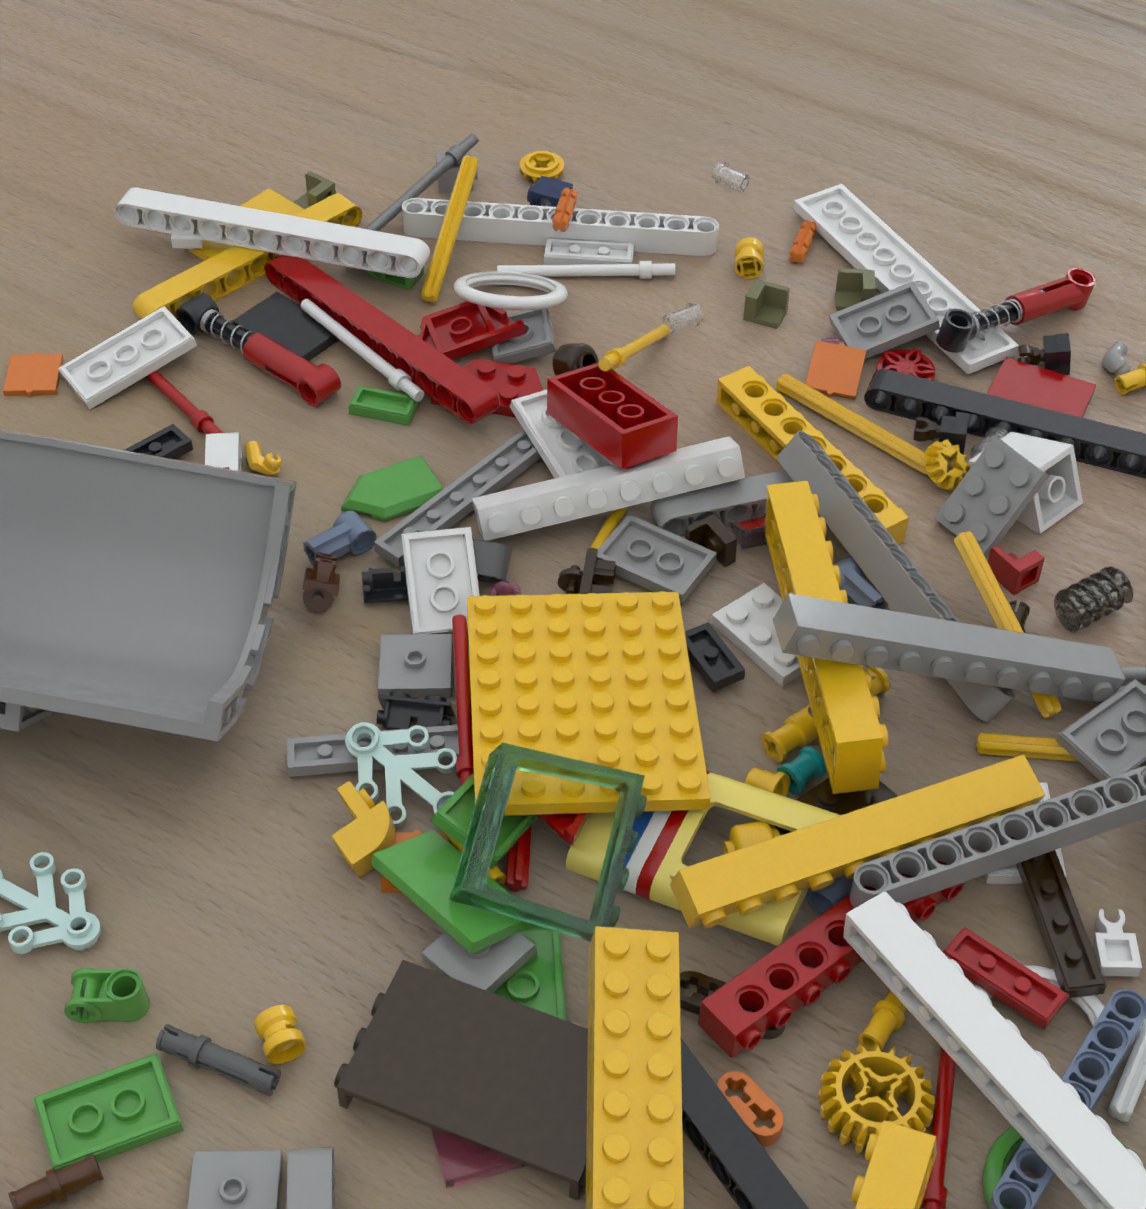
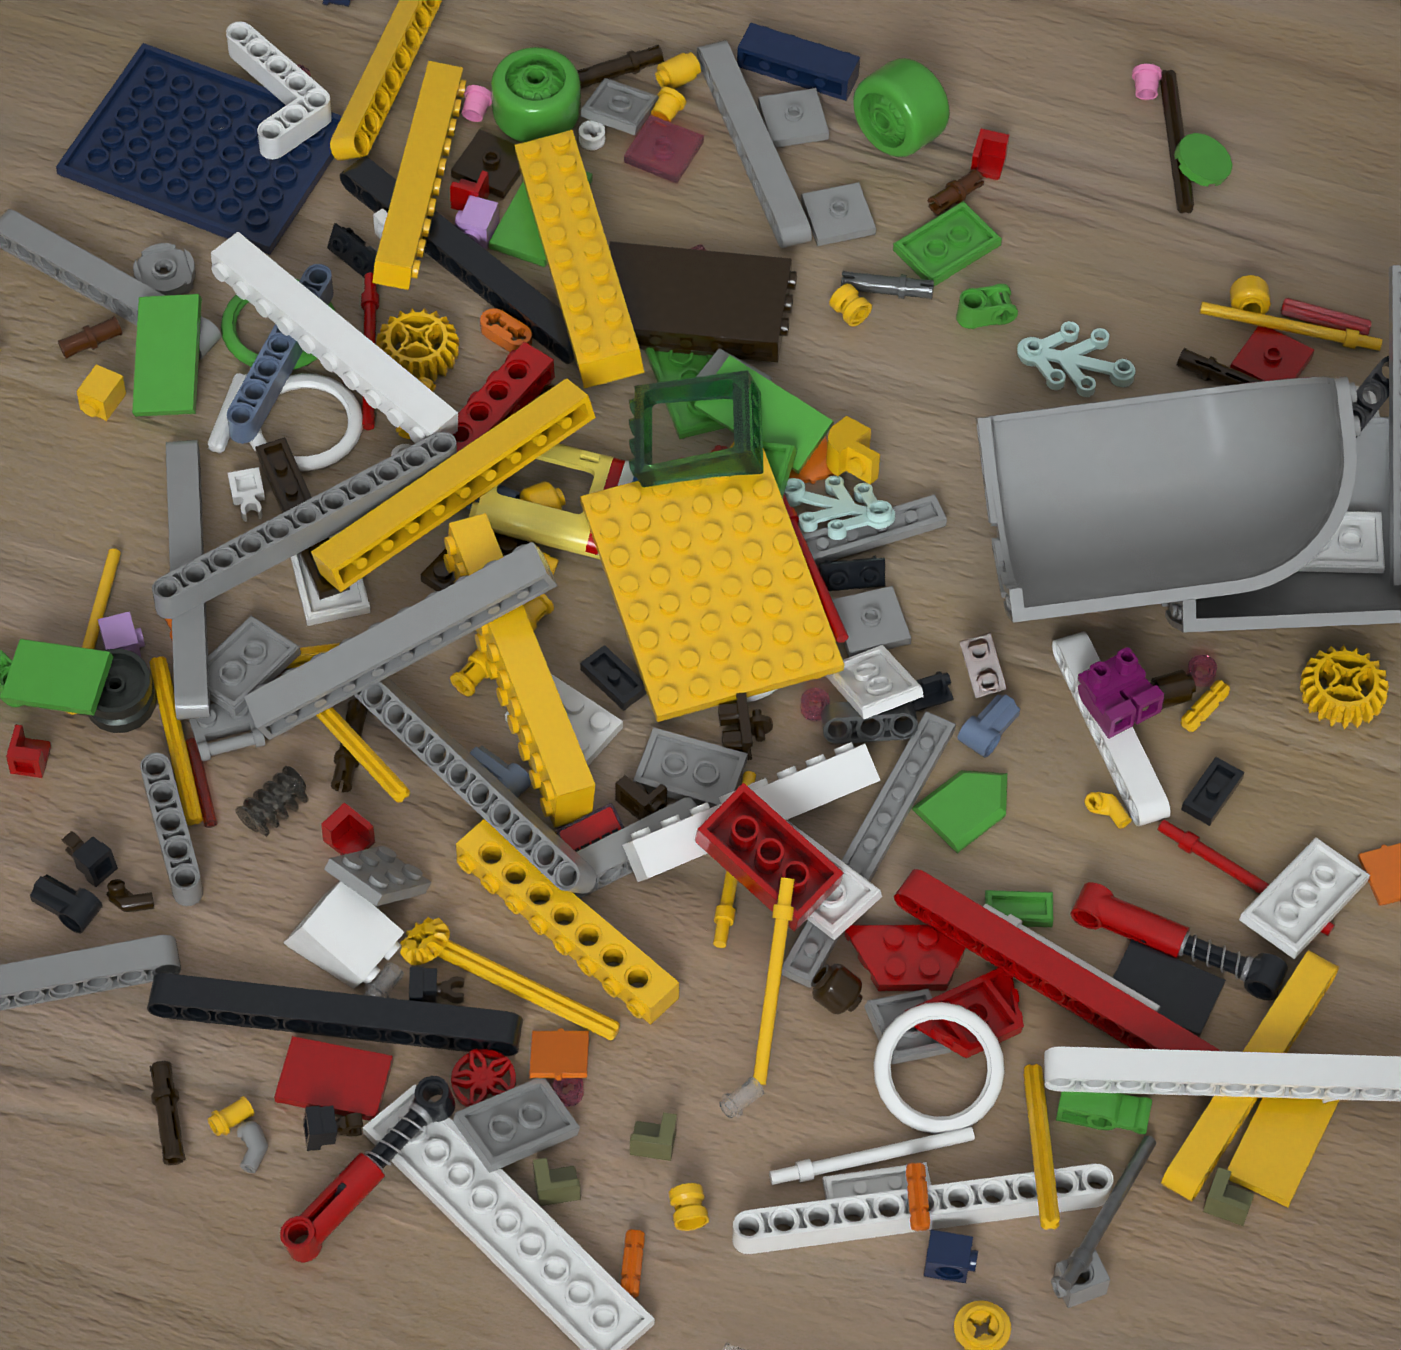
camera: 165 degrees right, 10 degrees up
(1006, 978) = (332, 443): red tile -> none

